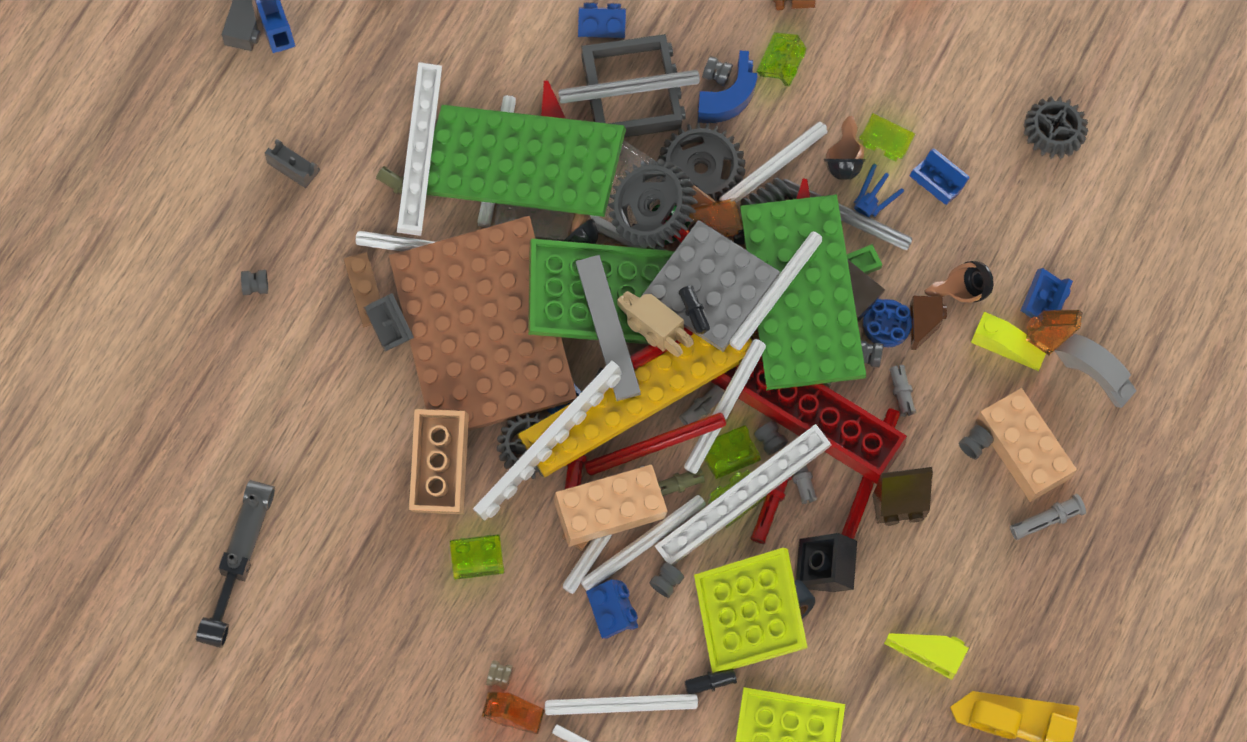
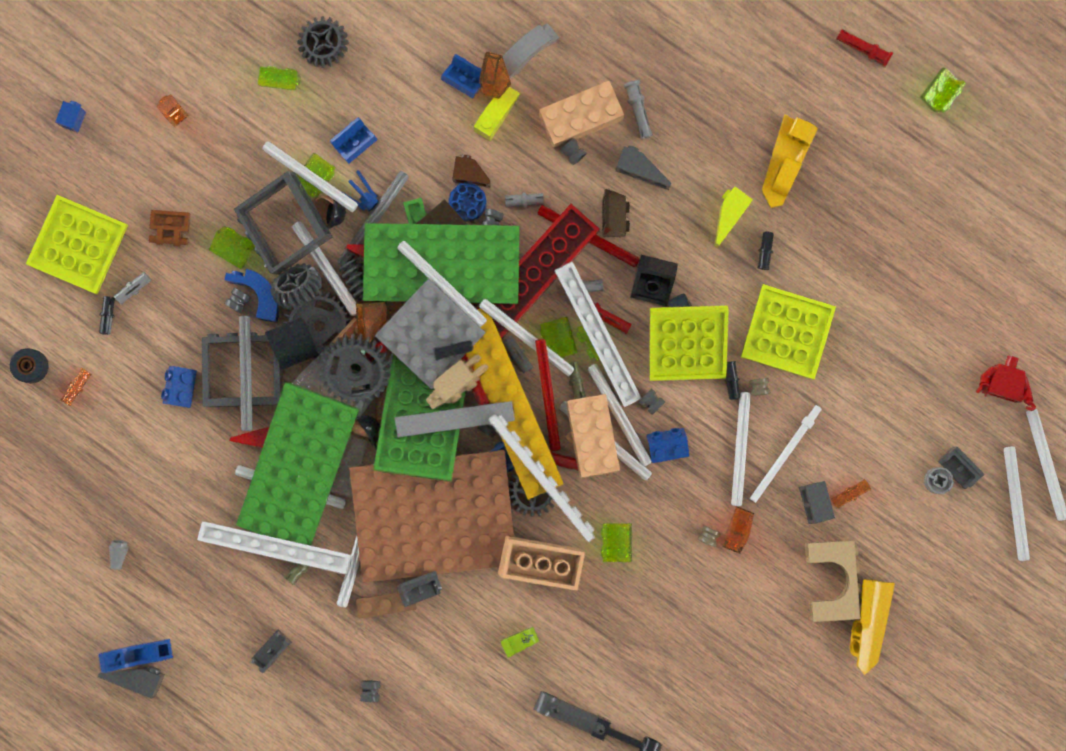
camera: 80 degrees left, 15 degrees up
(334, 452) = (519, 641): none -> lime leg
(674, 131) = (292, 343): none -> black slope
(707, 717) = (760, 386): none -> dark tan wheel
(745, 130) = (296, 286): none -> dark grey gear
(772, 438) = (552, 305): dark grey wheel -> none
(842, 131) = (307, 206): none -> dark grey window
(883, 129) = (309, 176): none -> white axle
(890, 705) = (765, 250): none -> black axle
(965, 283) = (445, 135): piece -> none
(973, 522) = (640, 167): none -> dark grey slope
(999, 79) = (278, 78): none -> clear neon green bracket

